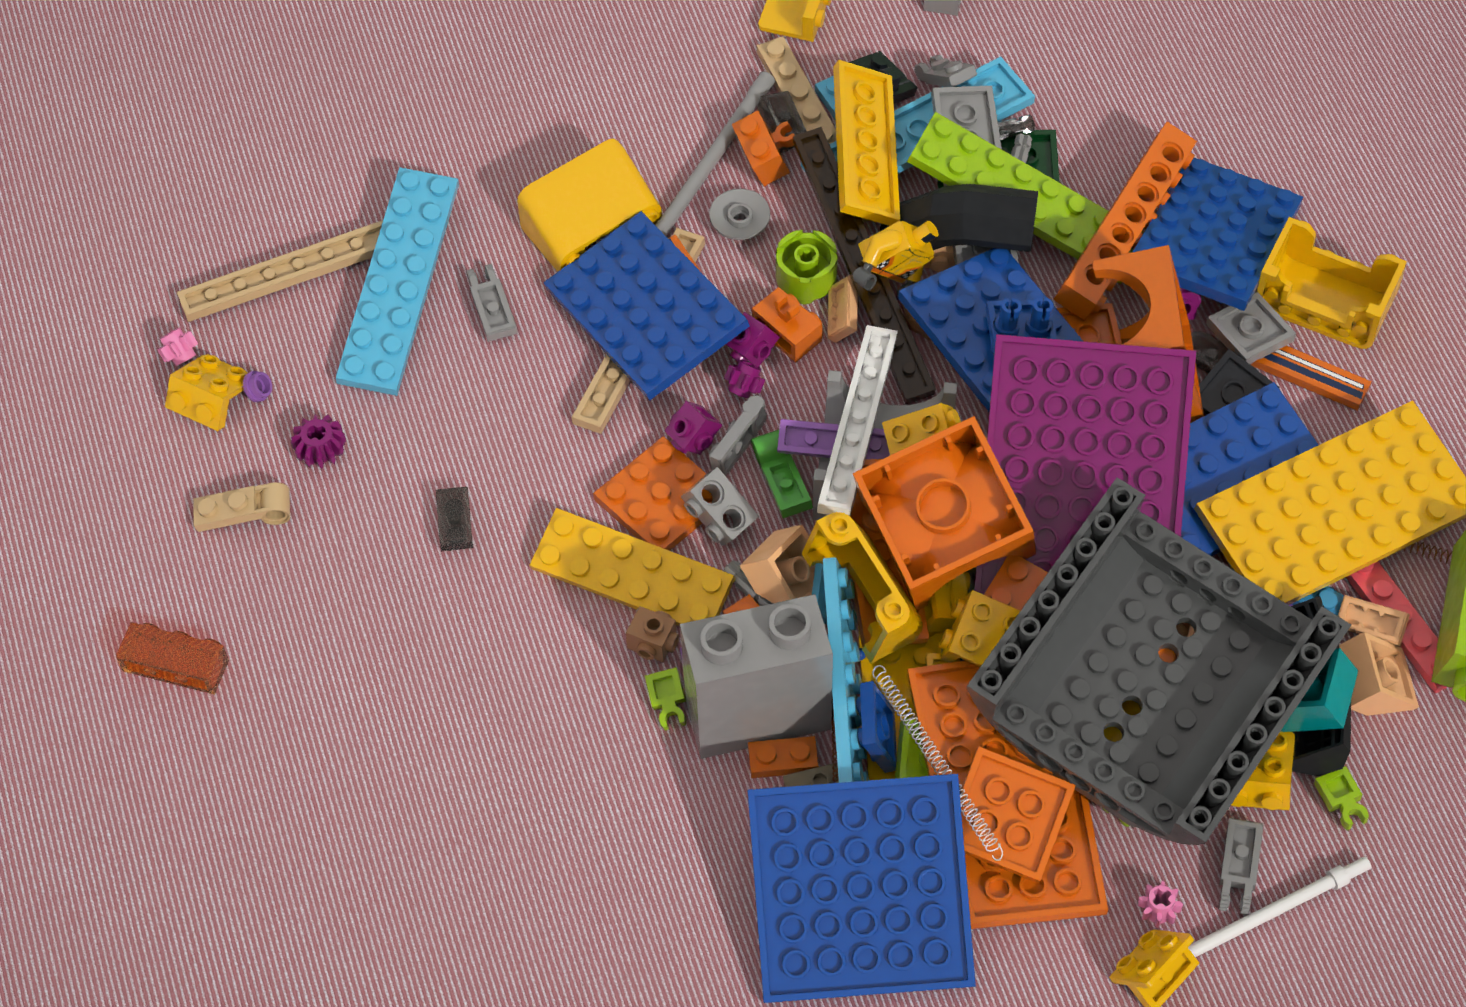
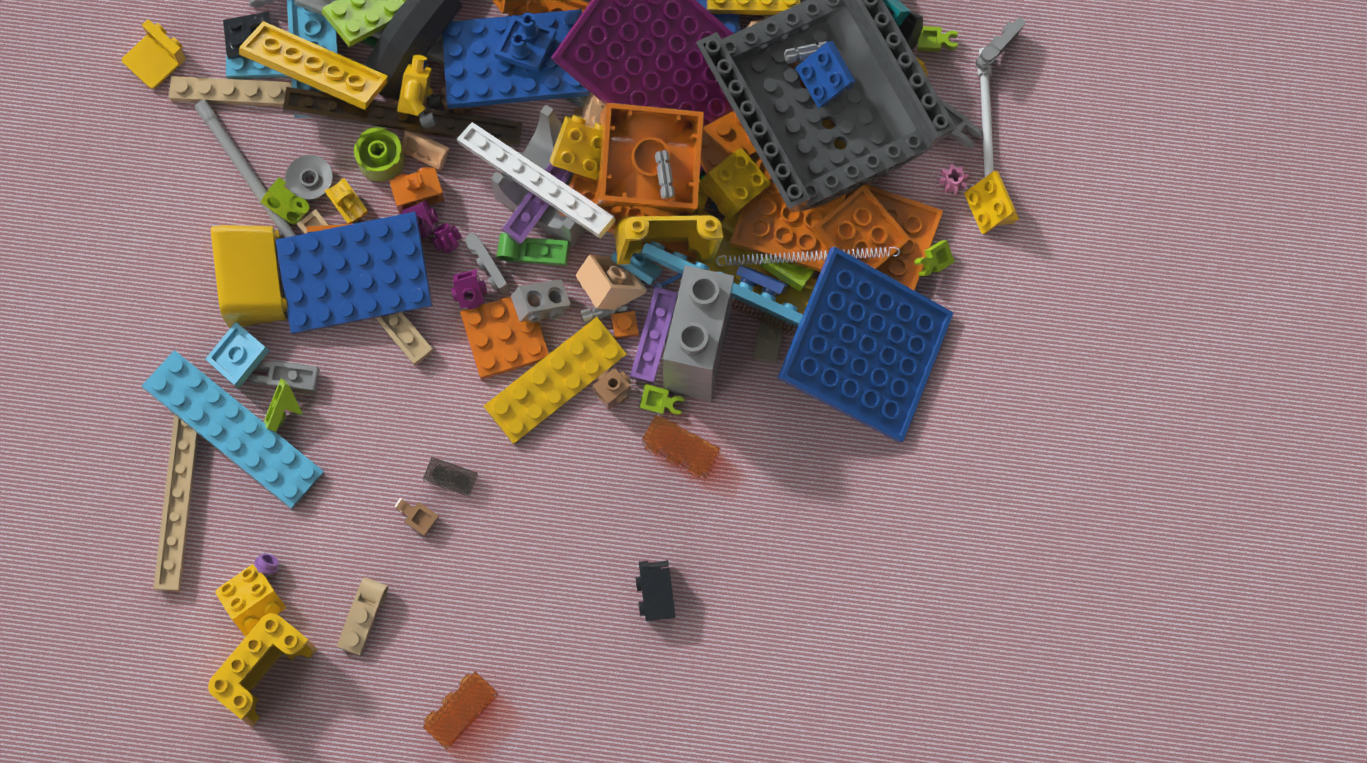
camera: 65 degrees left, 15 degrees up
(127, 415) = (252, 660): none -> yellow windscreen
(177, 346) = (202, 606): bright pink gear -> none
(318, 441) = (345, 544): magenta gear -> none
(388, 509) = (419, 517): none -> medium nougat plate
(419, 799) = (656, 590): none -> black hinge
(455, 311) = (282, 400): none -> lime slope
(487, 243) = (237, 354): none -> medium azure plate
(618, 746) = (680, 447): none -> clear orange brick
(693, 202) = (285, 203): none -> lime leg
(729, 262) = (346, 202): none -> yellow hips
(763, 146) = (263, 134): orange brick -> none
(780, 108) = (245, 112): clear smoke slope -> none
(782, 756) = (738, 350): orange plate -> none
(926, 527) = (665, 174): none -> light grey axle
(1037, 931) = (937, 258): none -> lime plate
(1181, 659) = (825, 74): none -> blue plate
(1203, 629) = (801, 52): none -> light grey axle
(1382, 874) = (999, 44): none -> light grey hinge

